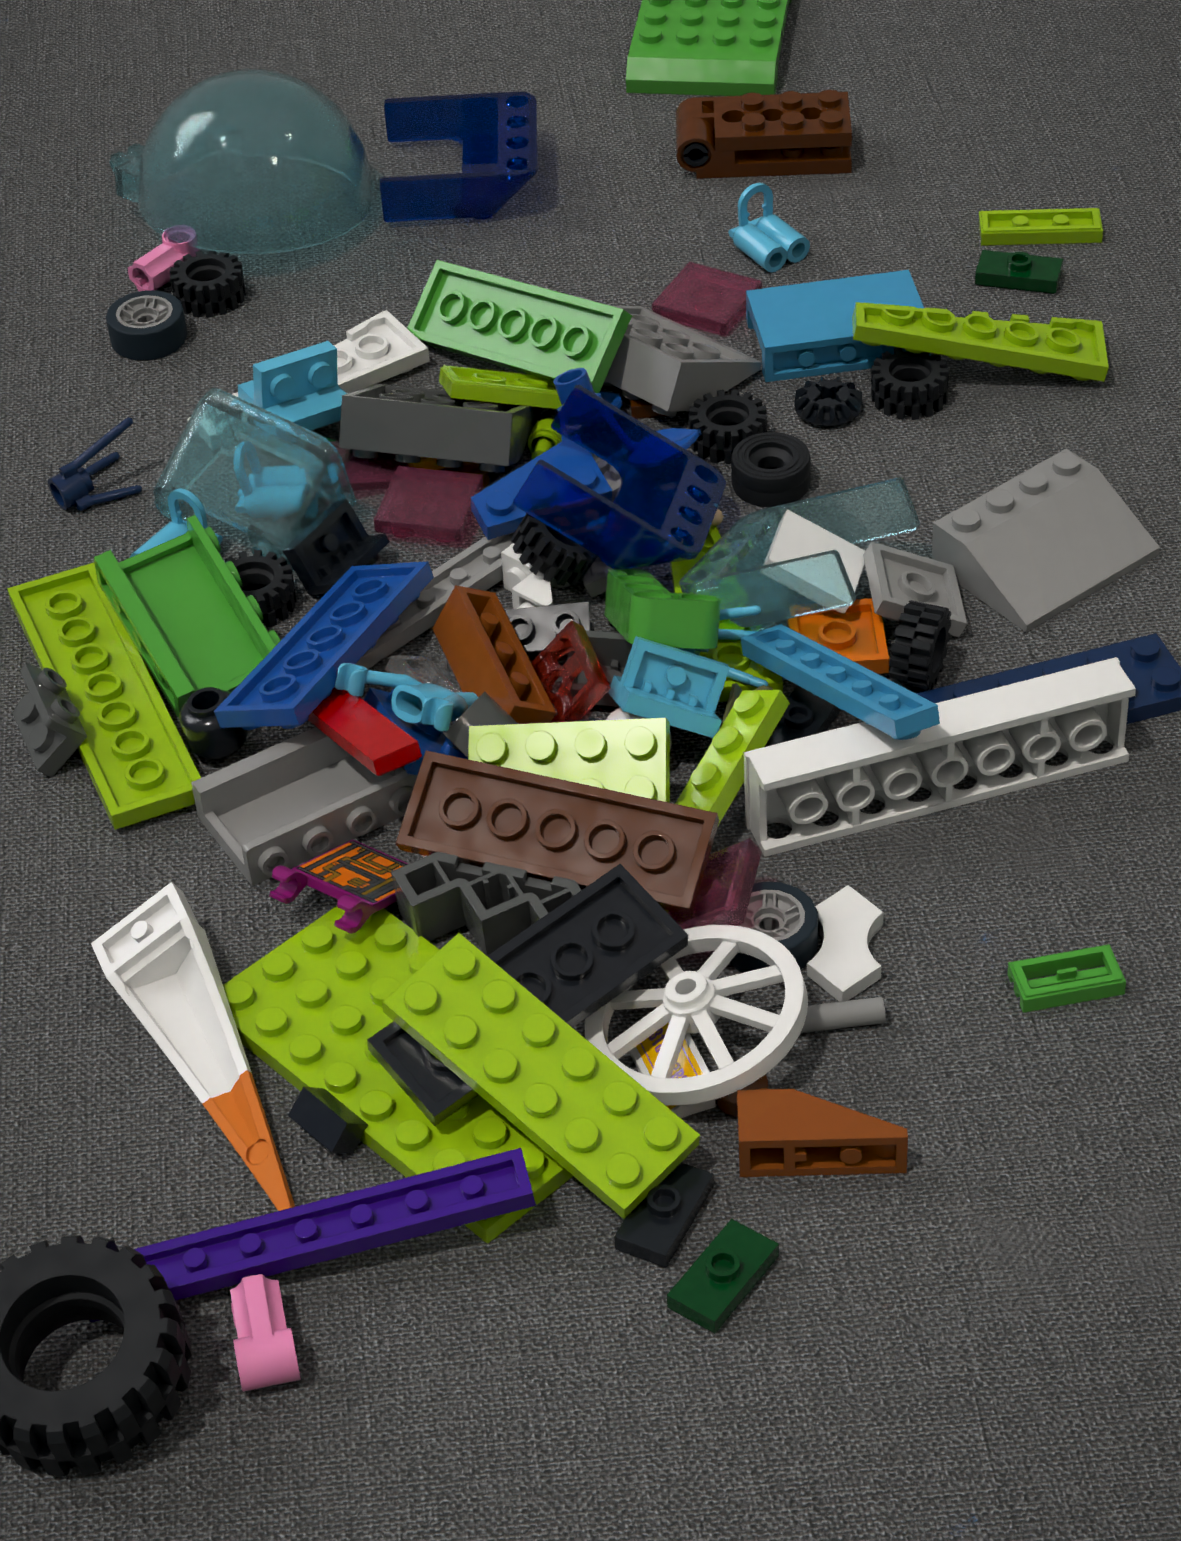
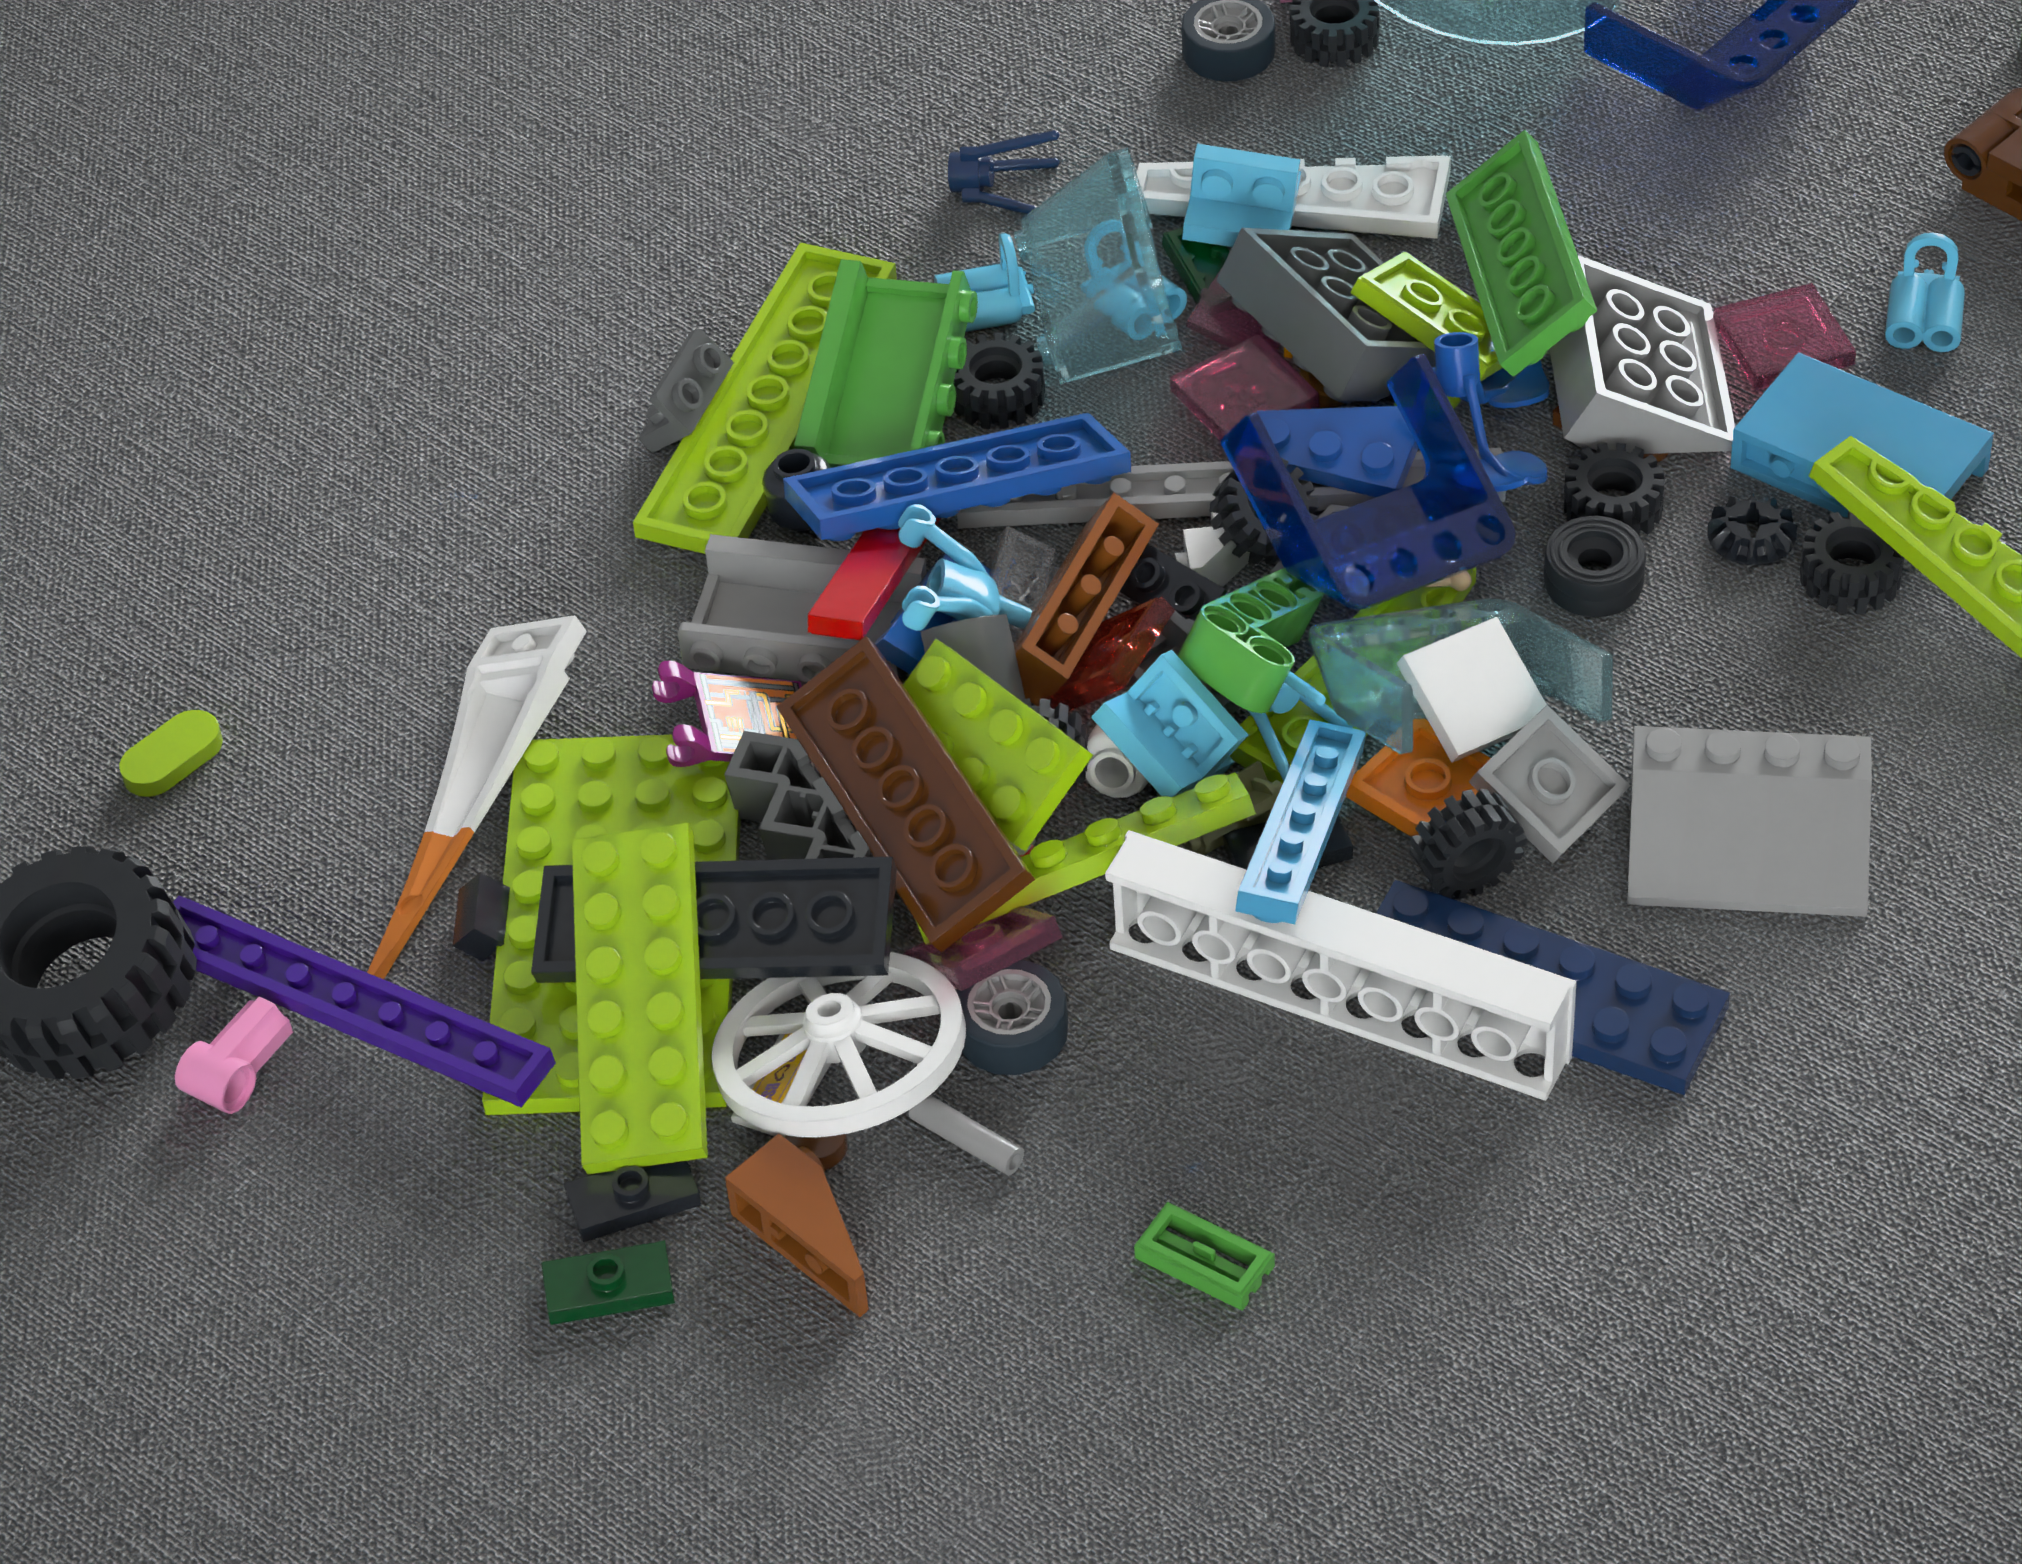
camera: 45 degrees right, 5 degrees up
(332, 547) = (1099, 380): black bracket -> none
(844, 960) = (1081, 1066): white tile -> none

